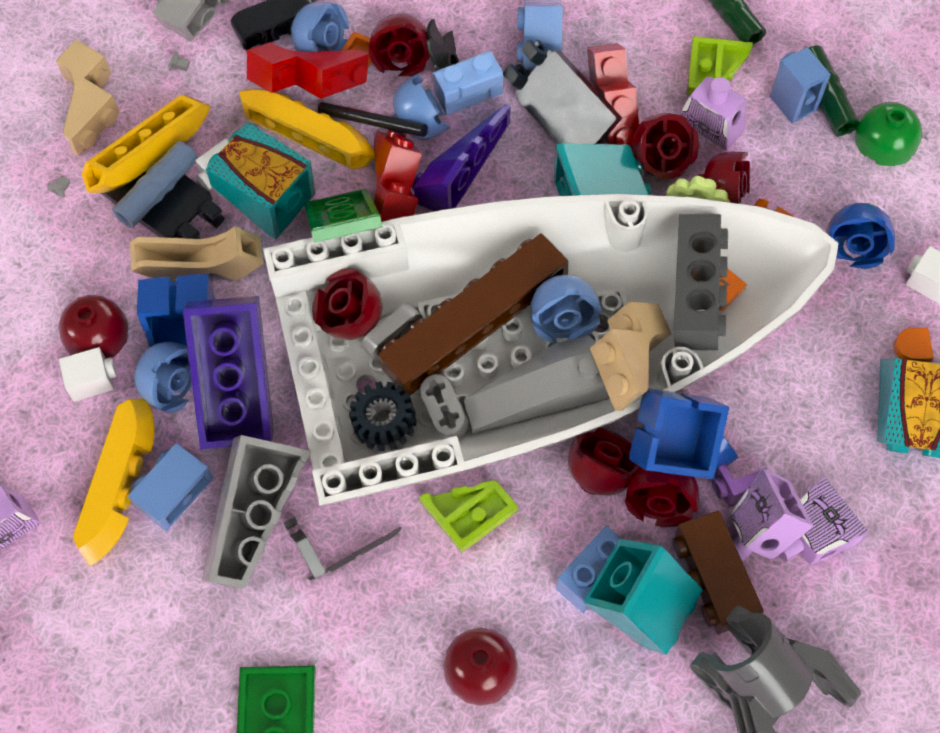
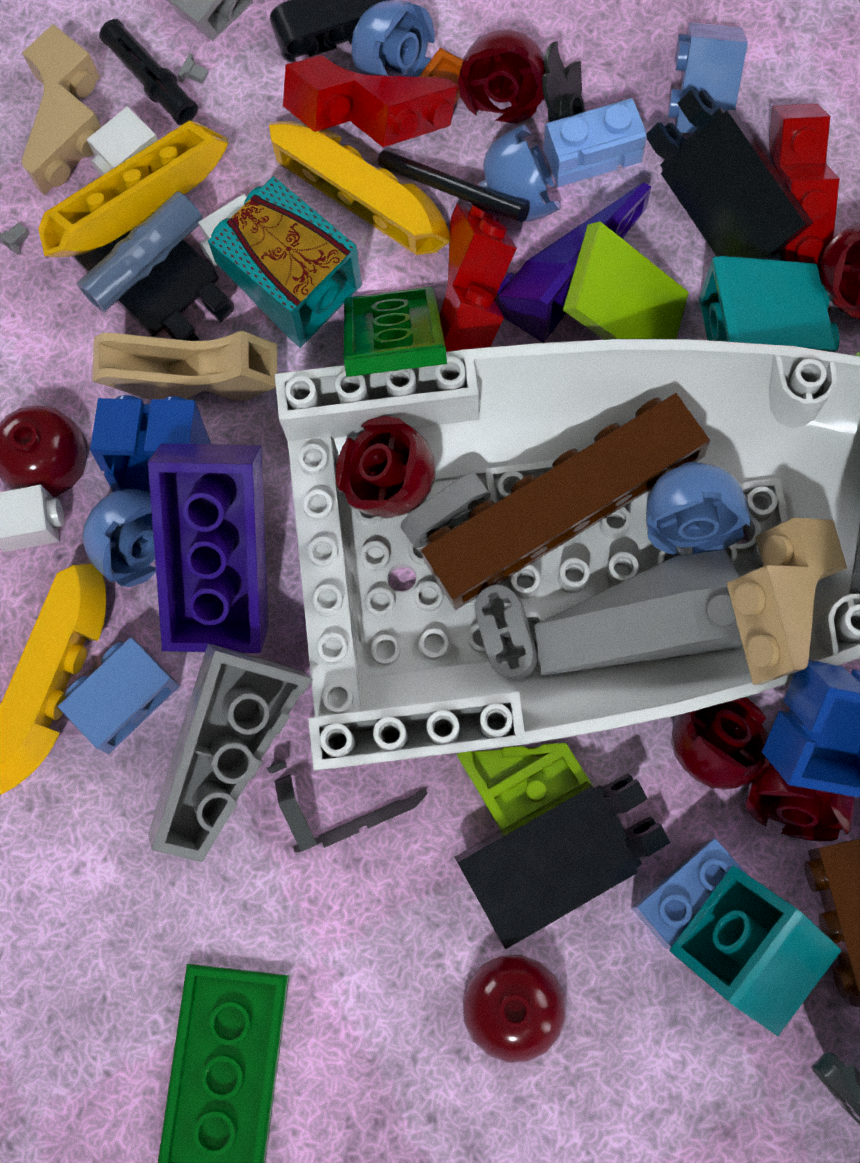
camera: 15 degrees right, 10 degrees up
(131, 112) = (119, 140): none -> white brick
(166, 81) = (175, 100): none -> black pin
(365, 419) = (394, 628): black bush -> none
(496, 173) = (621, 291): none -> lime tile
(498, 558) = (559, 857): none -> black tile

